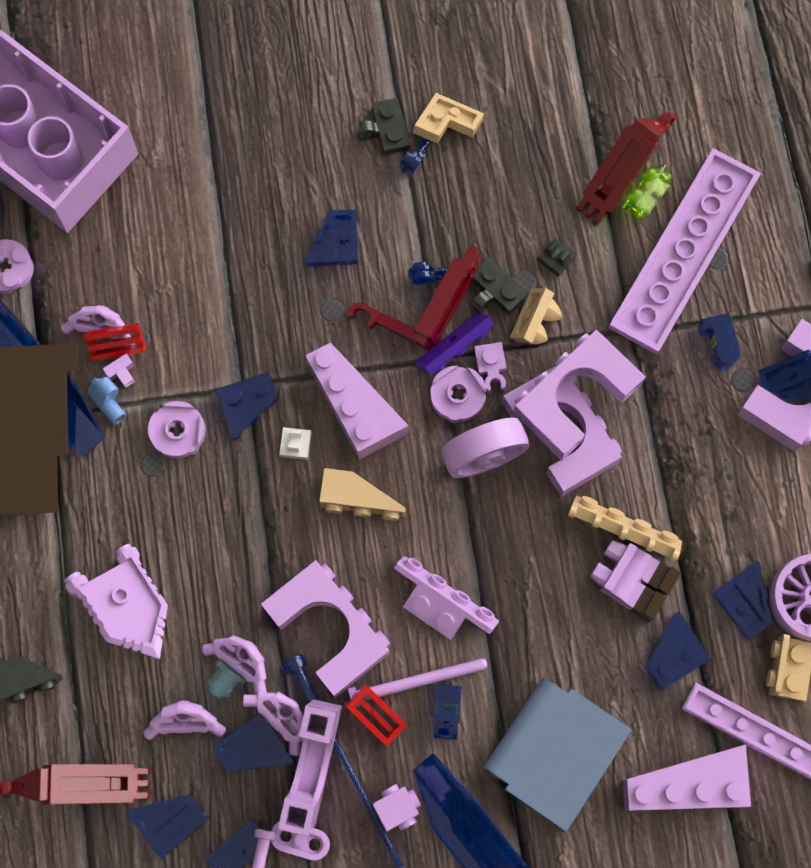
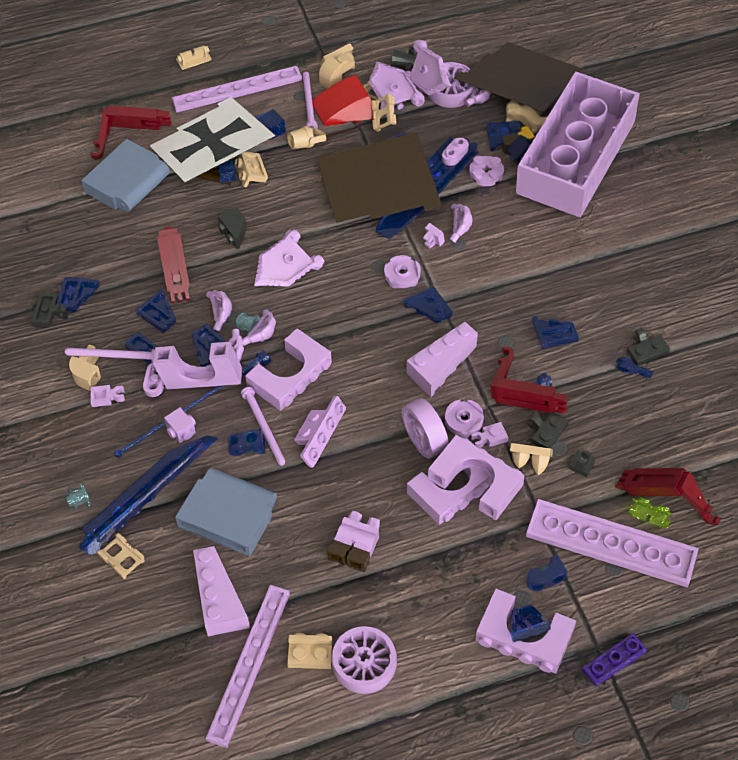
camera: 80 degrees right, 20 degrees down
(103, 394) = (414, 232): medium blue piece -> none
(115, 352) = (441, 224): red tile -> none
(295, 443) = (408, 335): white tile -> none
(350, 492) = (381, 370): tan slope -> none
(358, 698) = (243, 408): red tile -> none
(447, 113) = (666, 375): tan plate -> none
(455, 344) = (498, 410): dark purple tile -> none
(626, 528) = (390, 529): tan hinge -> none
(676, 653) = (308, 577): clear blue wing -> none
(746, 601) = (354, 613): clear blue wing -> none

